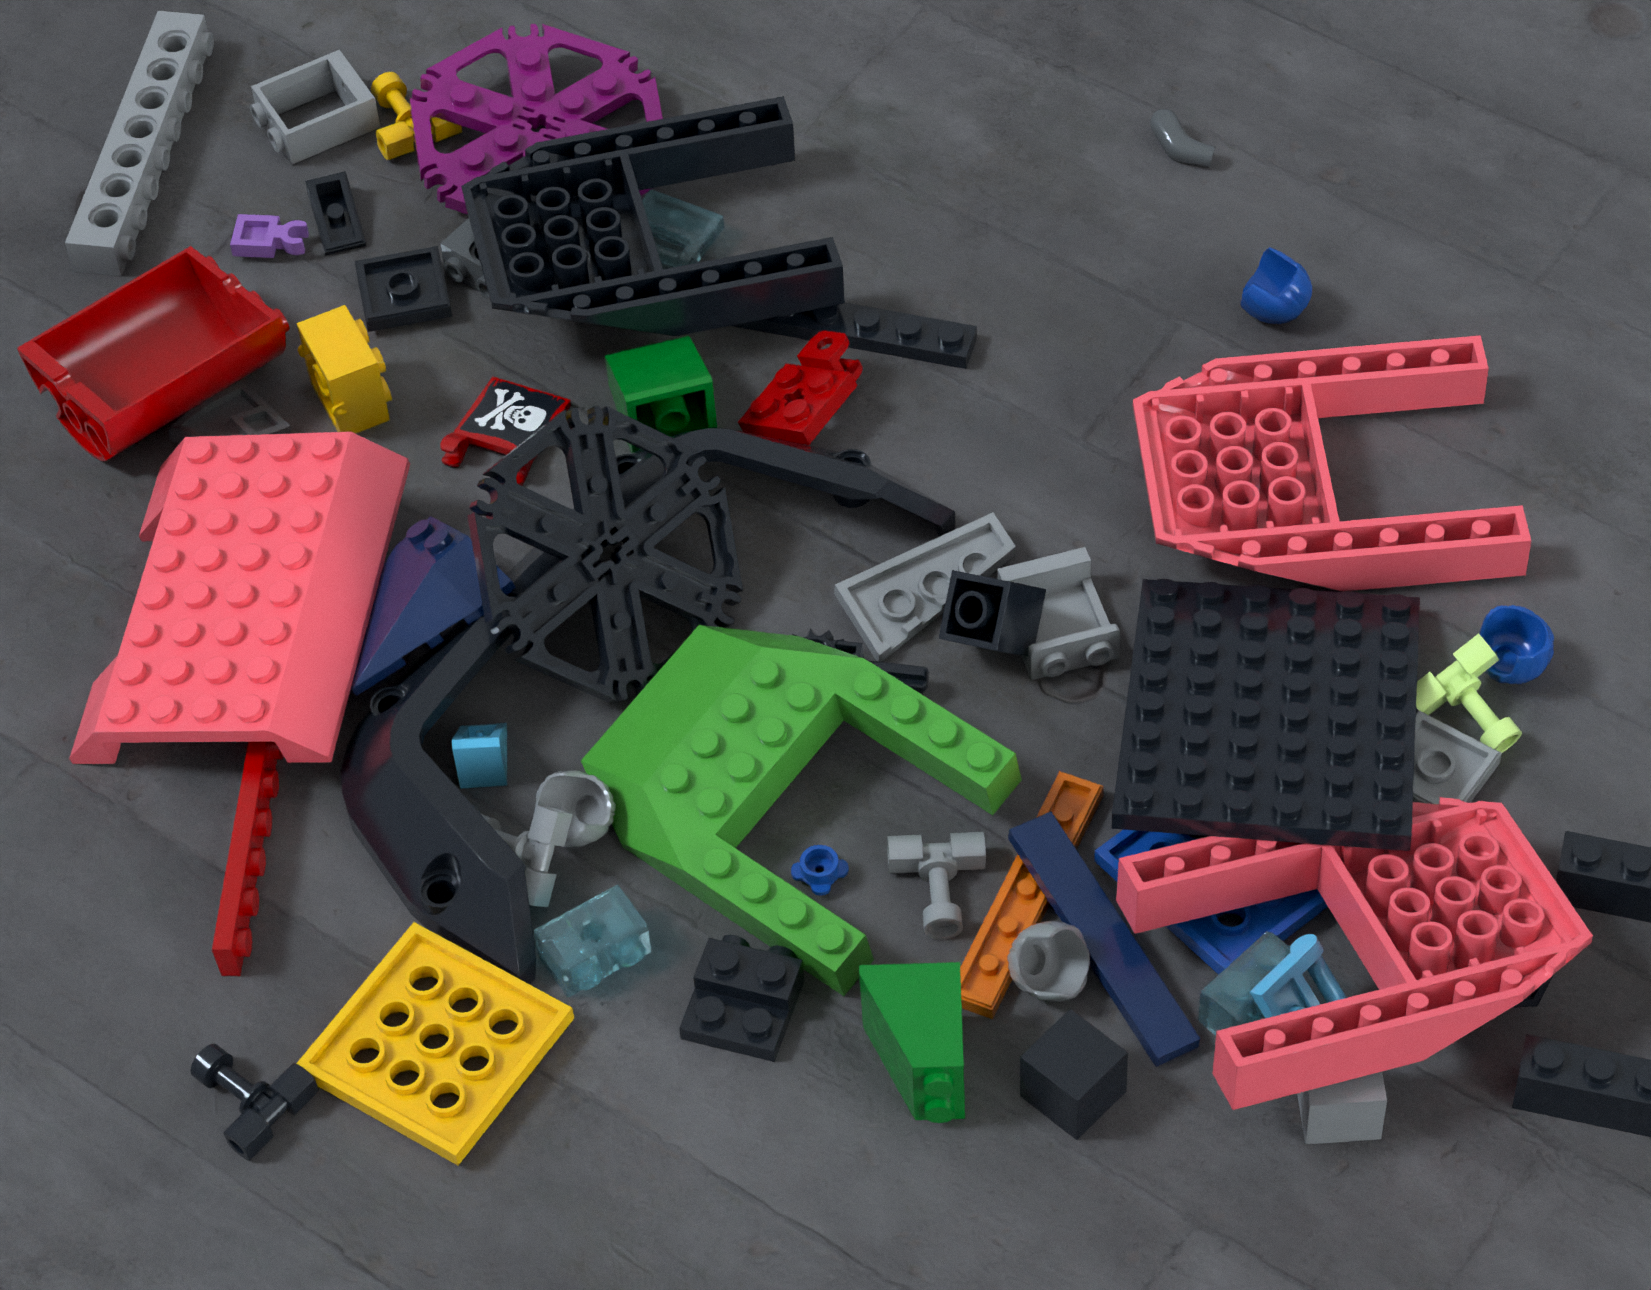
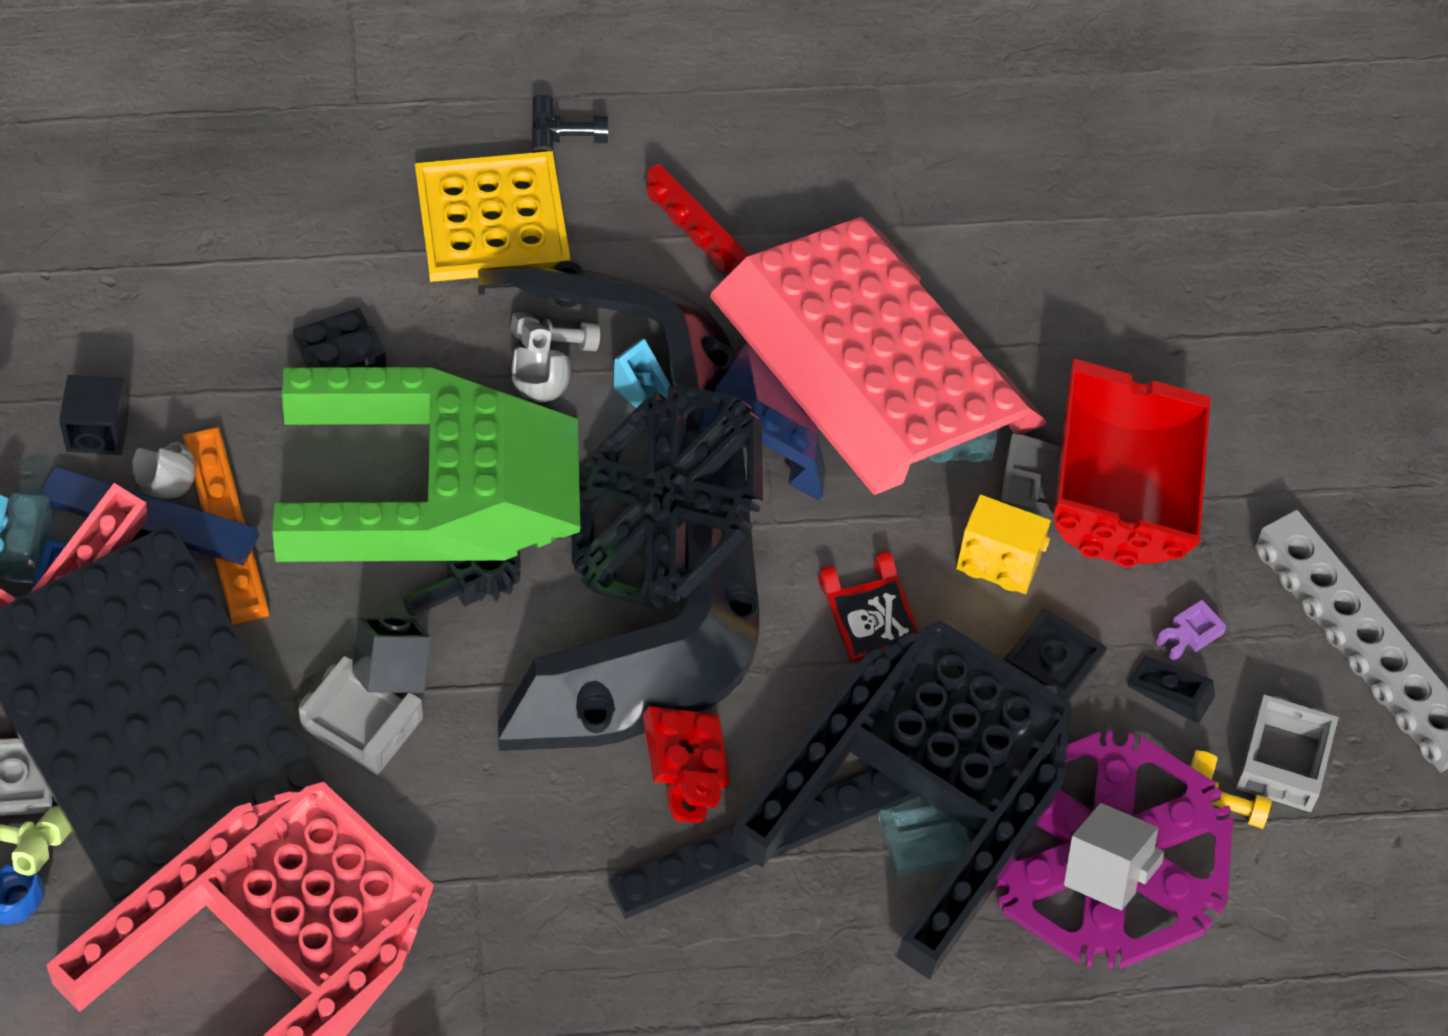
camera: 130 degrees right, 5 degrees up
(562, 82) = (1112, 856): none -> light grey plate
(593, 941) = (456, 318): clear light blue brick -> none
(663, 387) = (781, 681): green slope -> none
(819, 858) = (366, 443): blue plate -> none
(911, 589) = (477, 673): light grey wing -> none
(918, 1033) = (203, 369): green slope -> none
(938, 865) = (317, 489): light grey bar -> none

